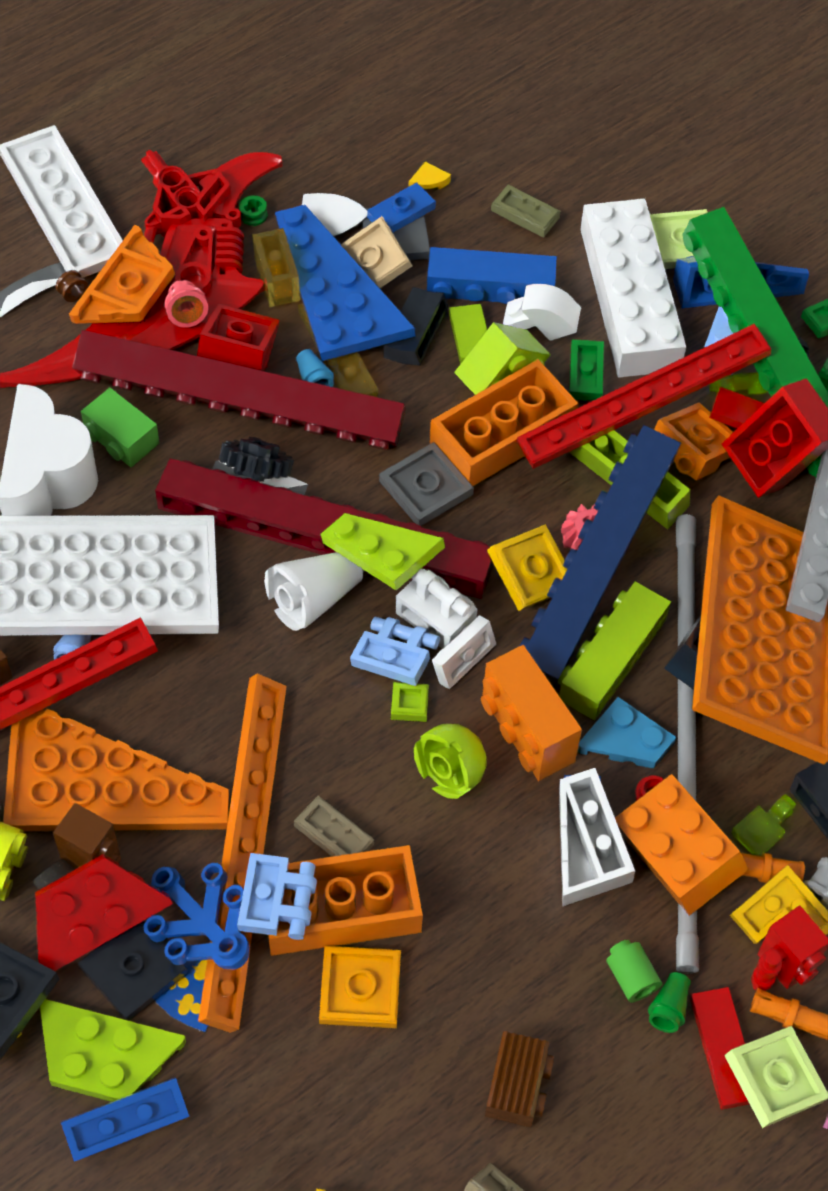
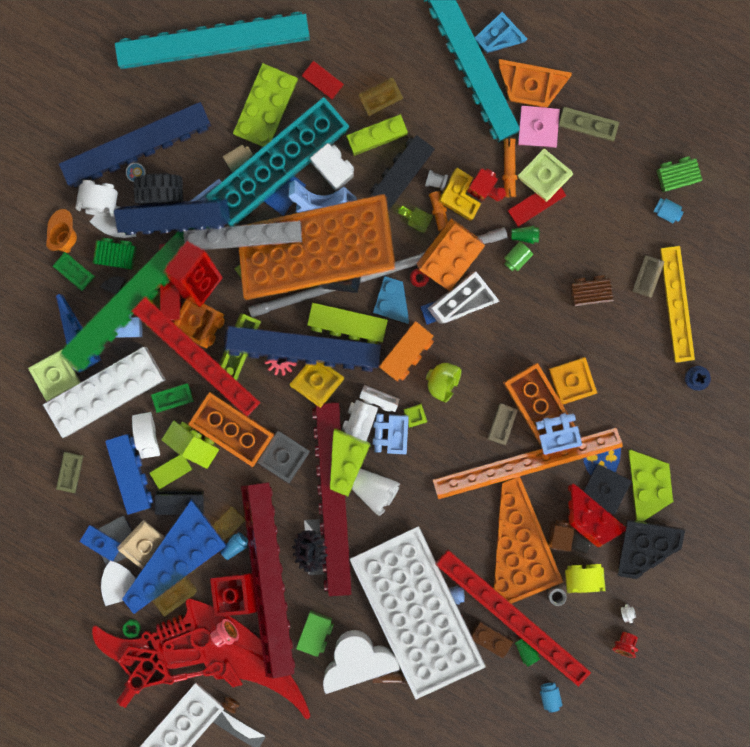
camera: 105 degrees left, 30 degrees up
(124, 1119) = (677, 460): blue plate -> none
(125, 284) = (222, 672): orange wing -> none
(202, 920) = (576, 465): blue plant -> none
(430, 177) = (66, 537): yellow tile -> none

